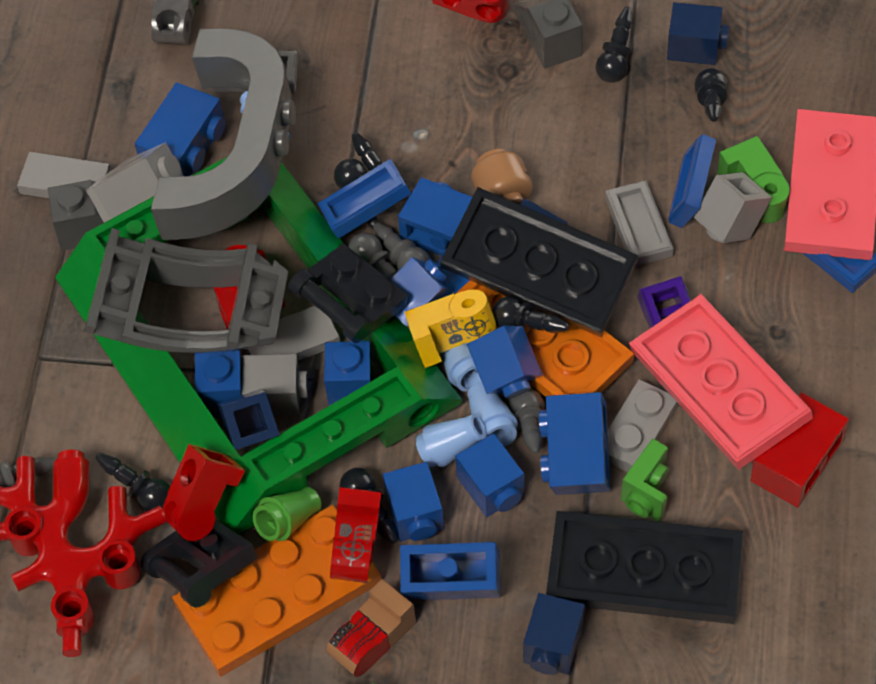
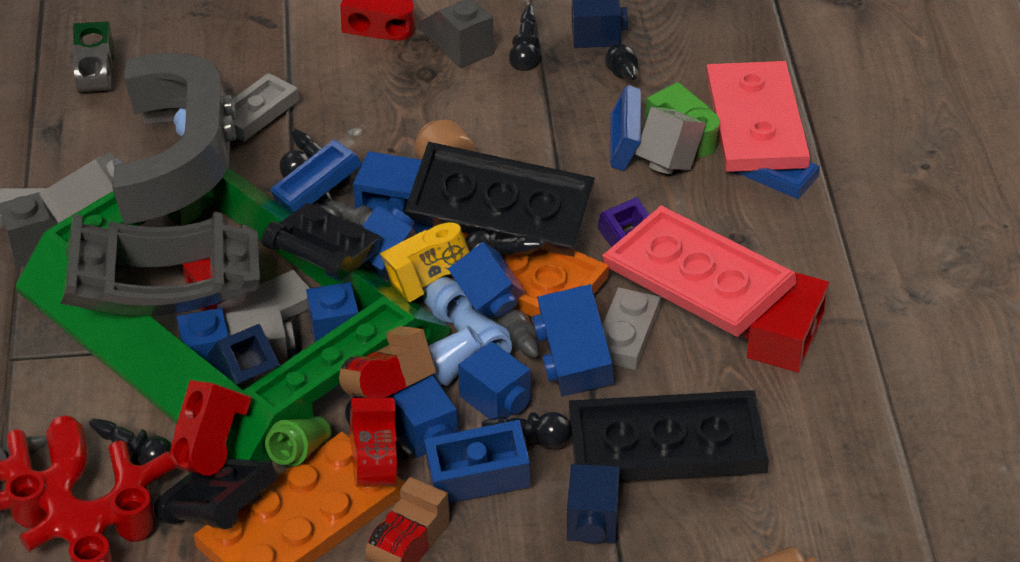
camera: 15 degrees left, 15 degrees down
(187, 123) = (126, 136): blue brick -> none
(328, 91) = (262, 104): none -> light grey plate
(385, 451) = (390, 368): none -> leg
(531, 538) = (549, 430): none -> black bar
(639, 222) = (580, 158): light grey tile -> none
(643, 481) = (648, 365): bright green bracket -> none

